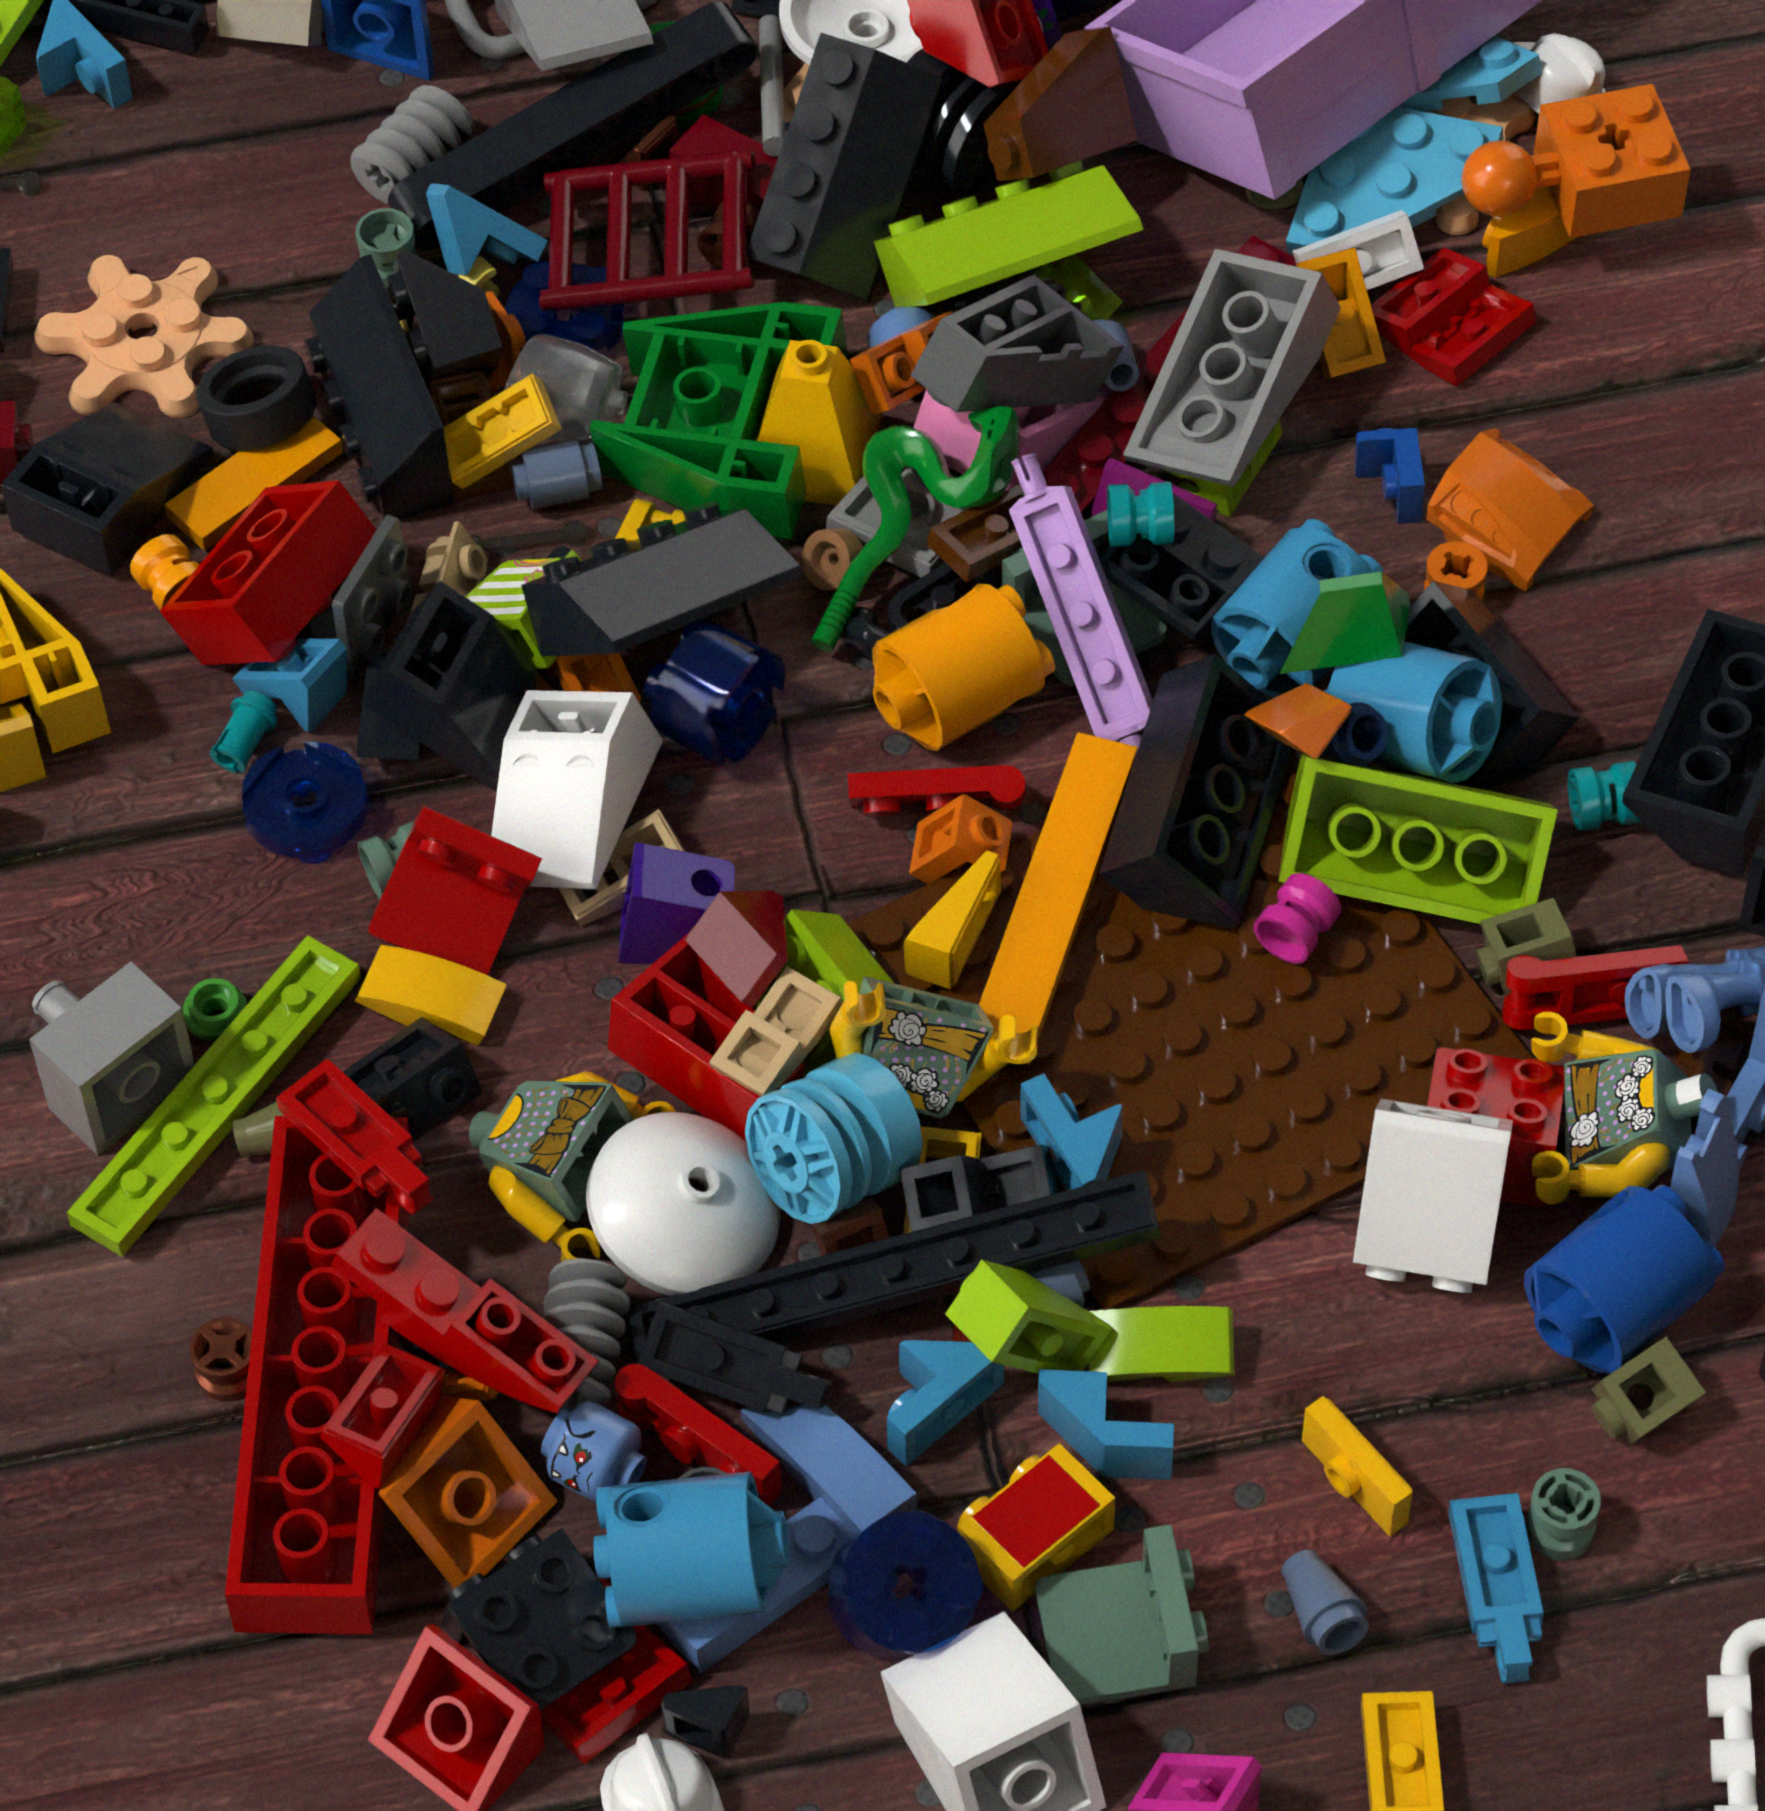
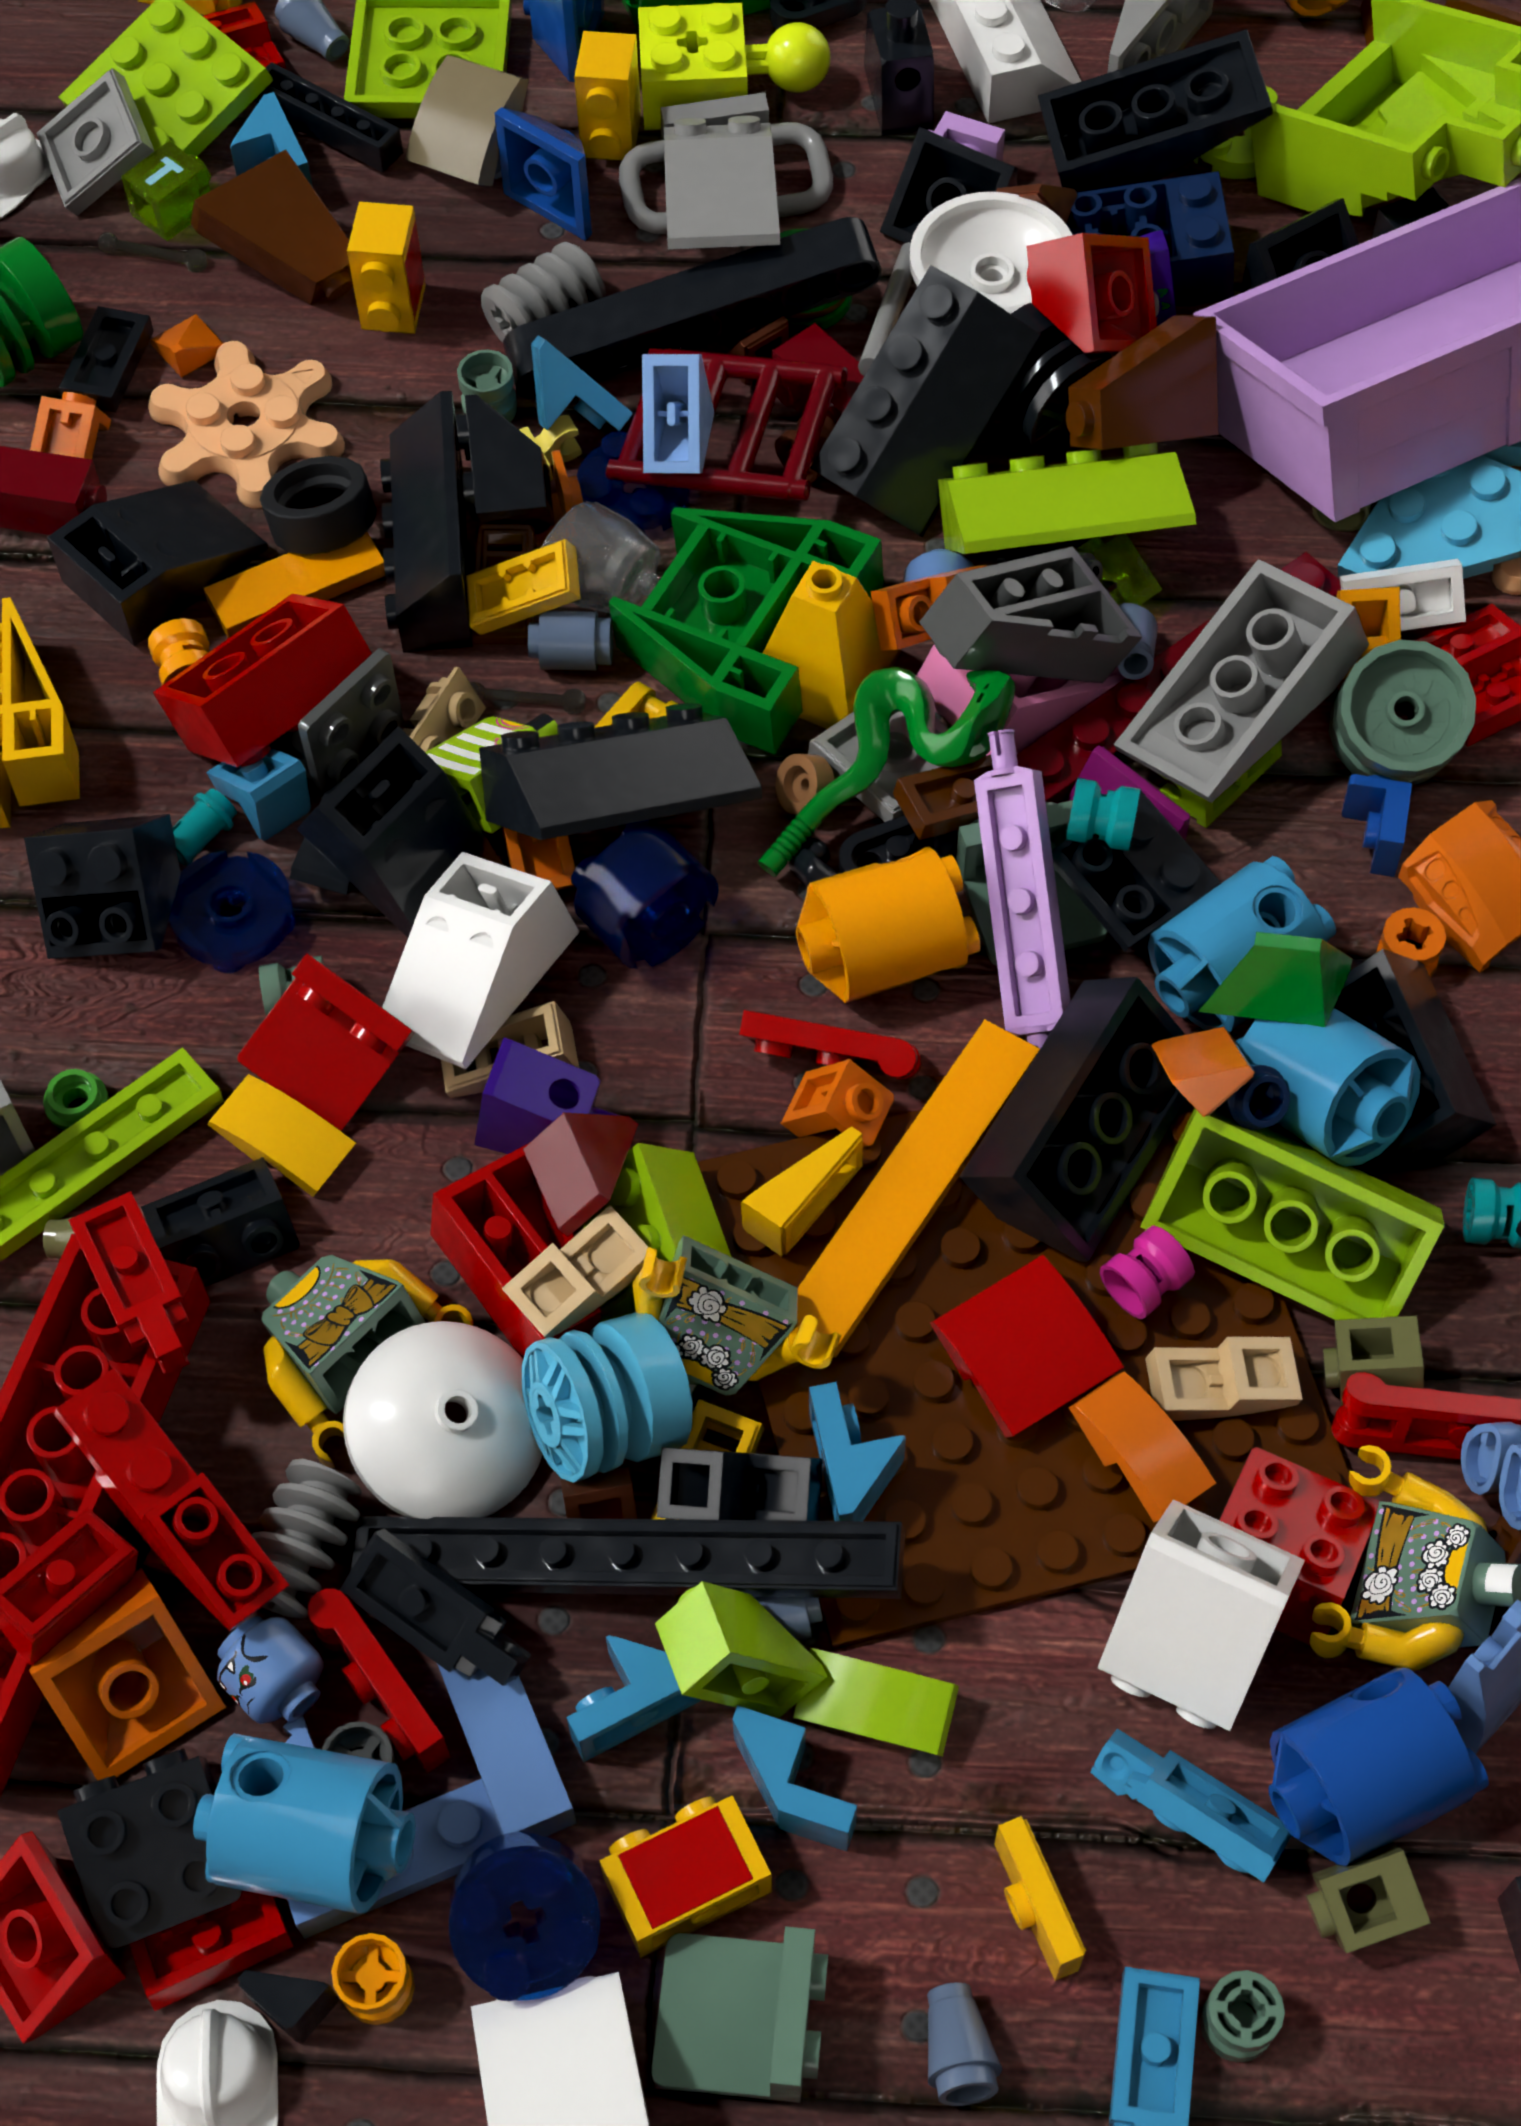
camera: 15 degrees right, 5 degrees up
(54, 270) = (187, 345): none -> orange slope
(122, 134) = (278, 228): none -> reddish brown slope
(177, 803) = (104, 885): none -> black slope
(246, 148) = (386, 267): none -> yellow brick
(600, 230) = (675, 413): none -> light blue slope
(779, 1664) = (369, 1964): none -> light orange wheel
(1205, 1008) = (1026, 1345): none -> red slope
(1326, 1055) = (1144, 1442): none -> orange slope
(1396, 333) = (1411, 679): none -> sand green wheel
(1403, 994) = (1224, 1381): none -> tan slope
(1469, 1355) = (1193, 1803): none -> dark azure hinge

